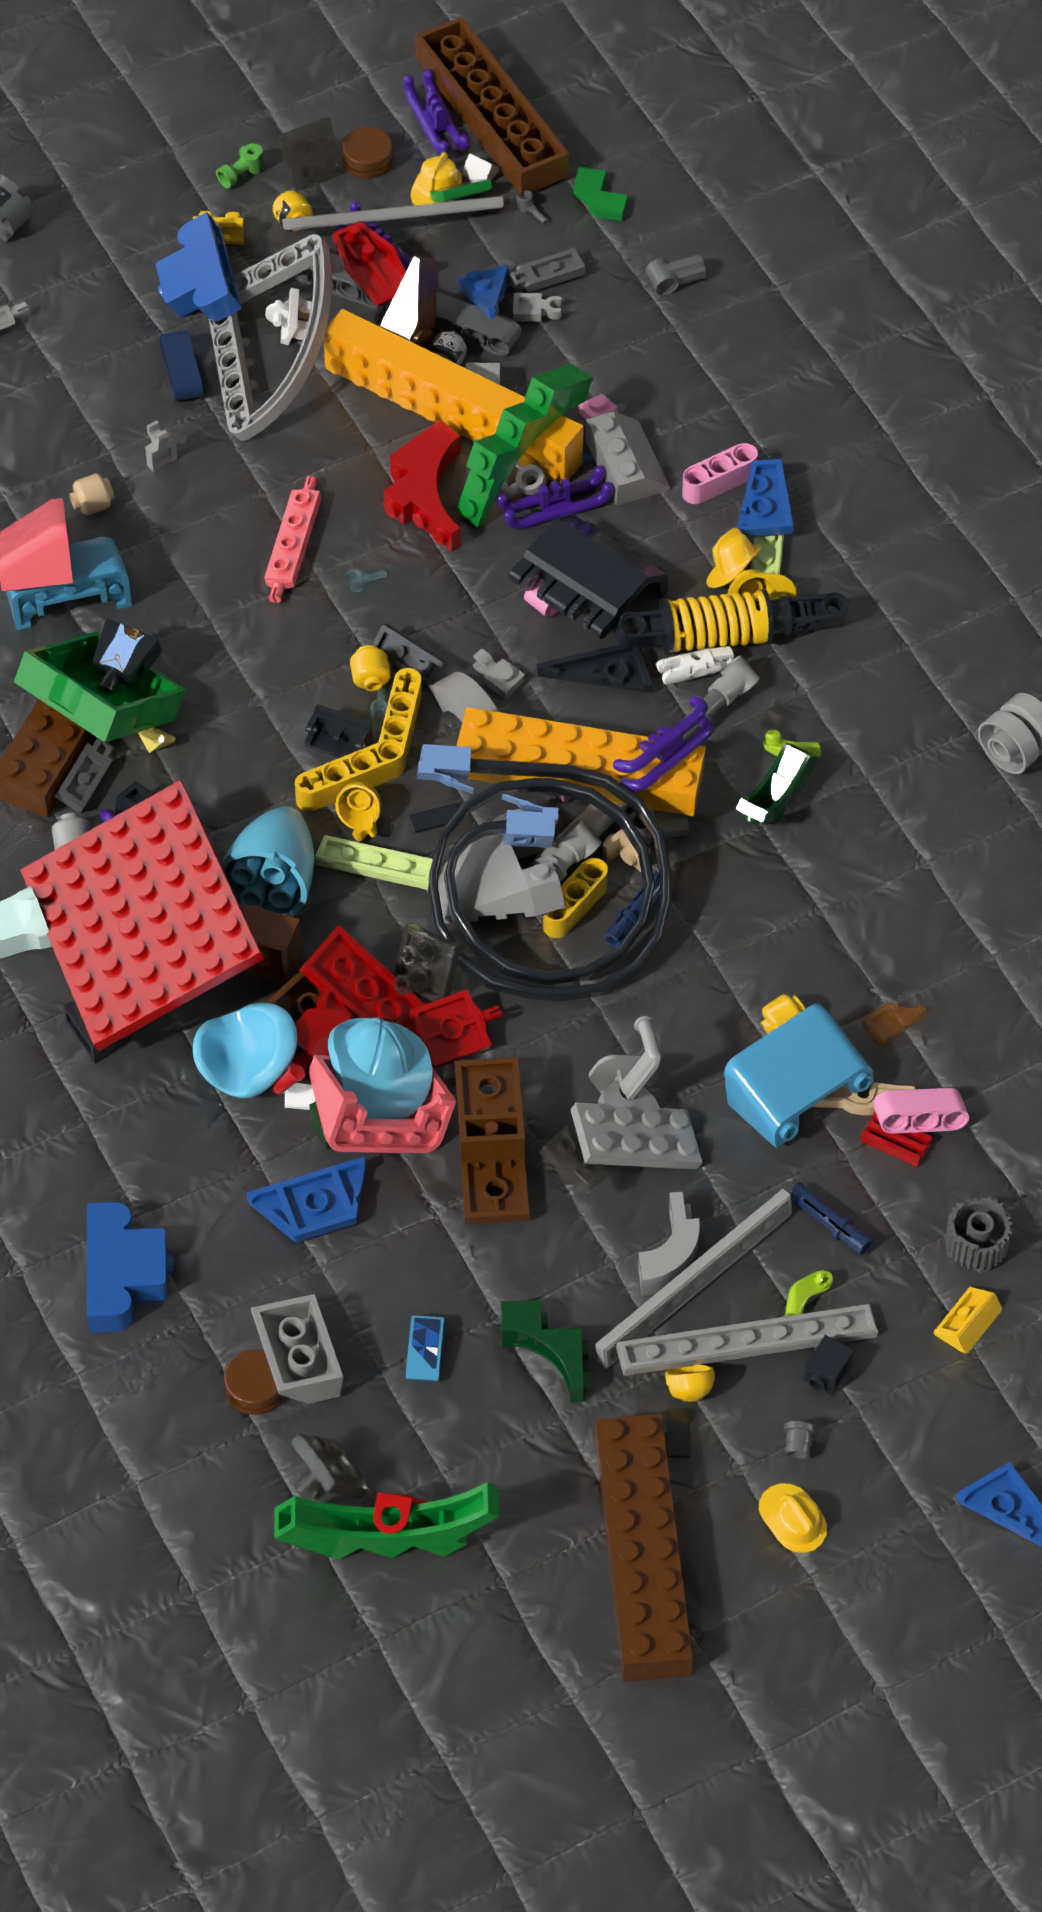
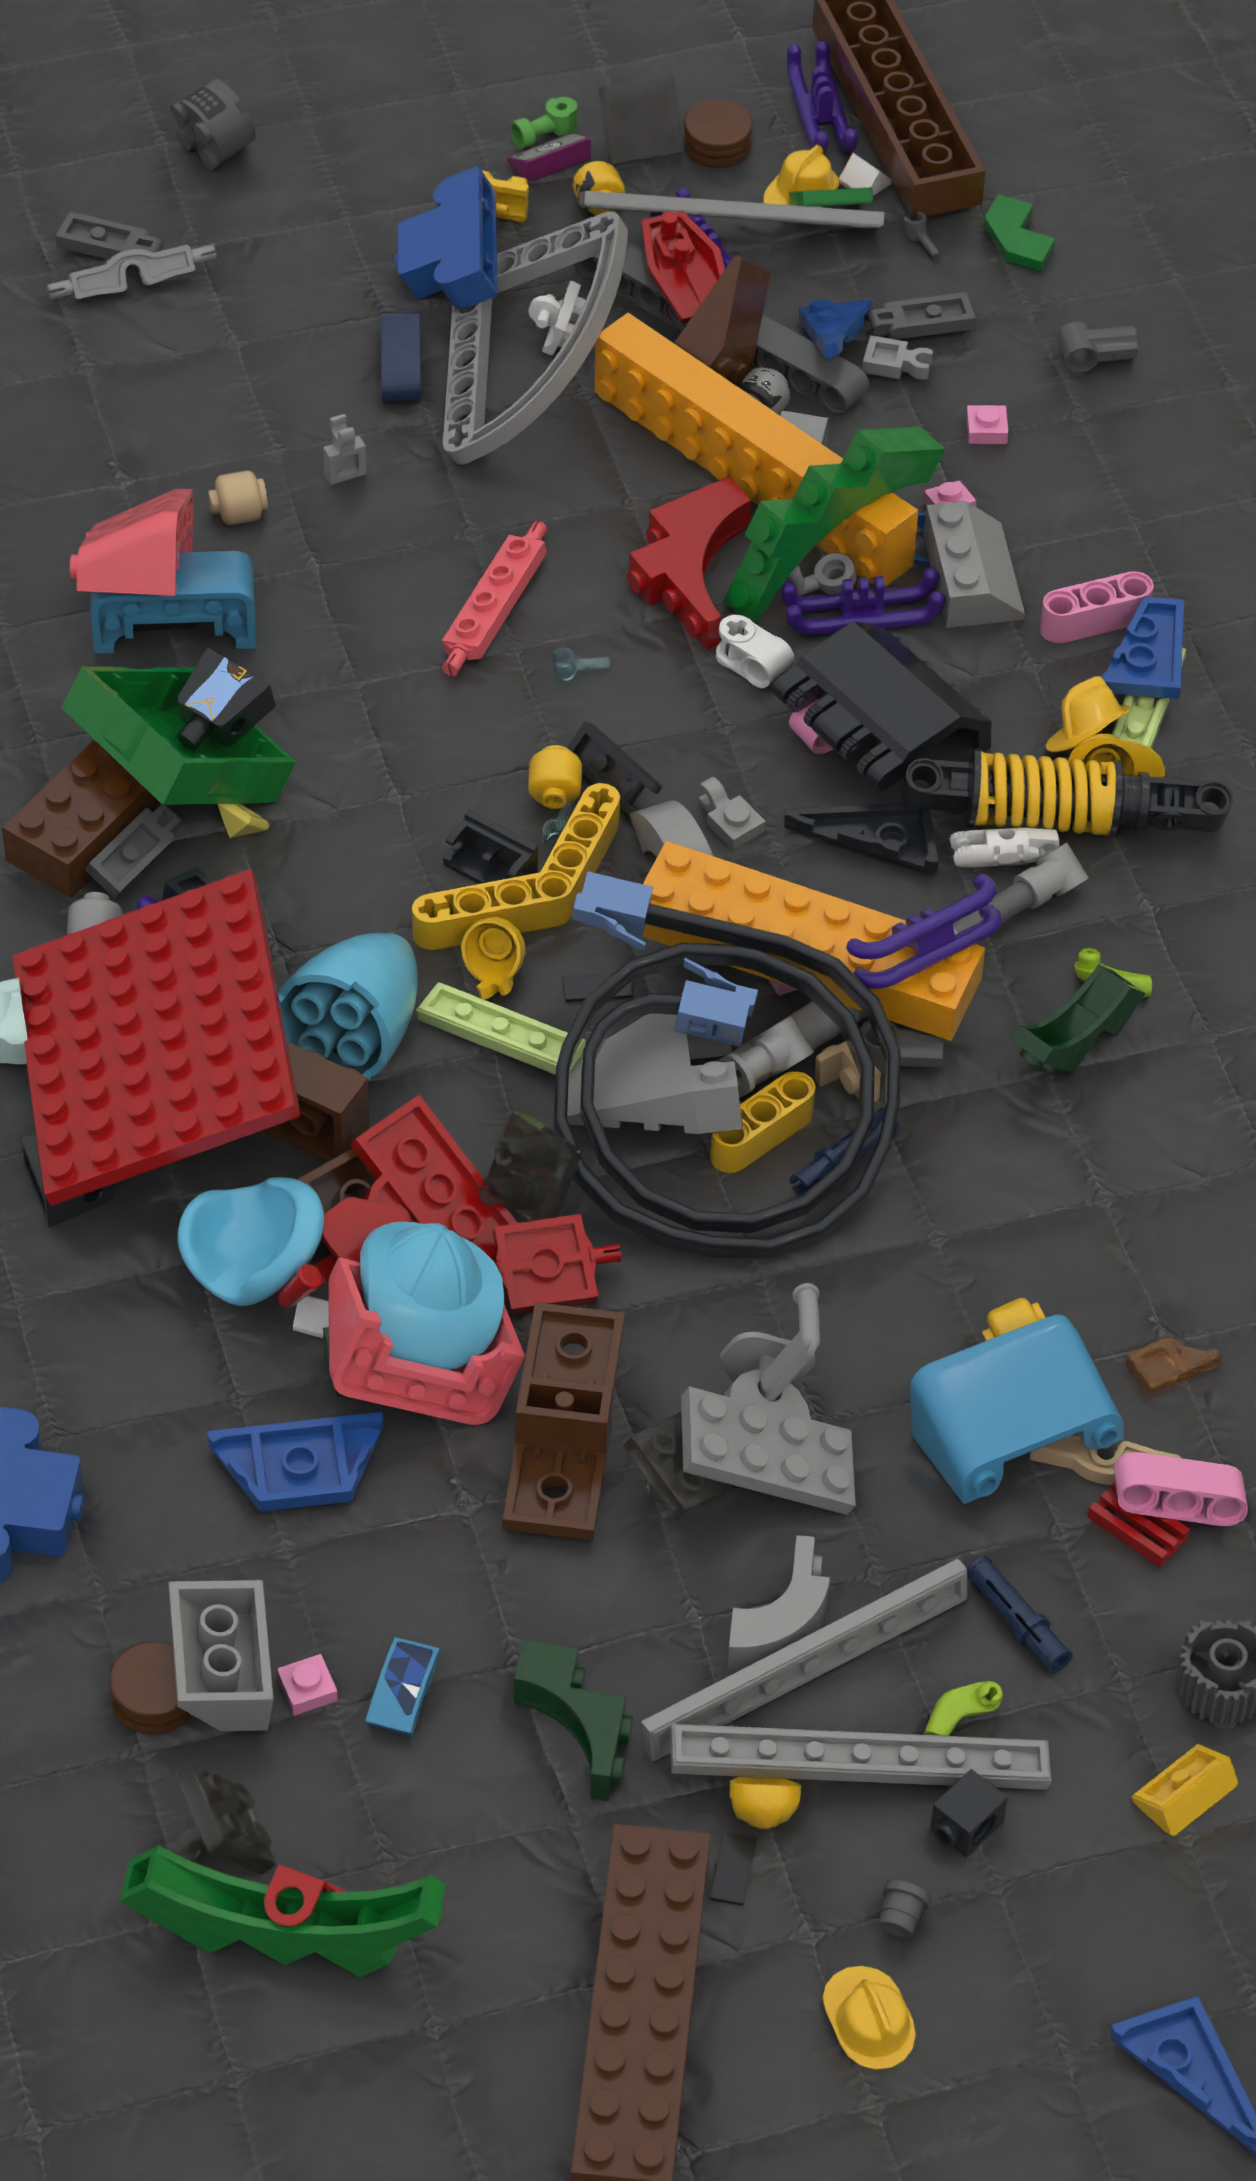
camera: 10 degrees right, 5 degrees down
(250, 190) = (551, 156): none -> magenta slope
(358, 1359) = (307, 1684): none -> bright pink plate
(488, 551) = (755, 654): none -> white piece
(610, 346) = (987, 424): none -> bright pink plate

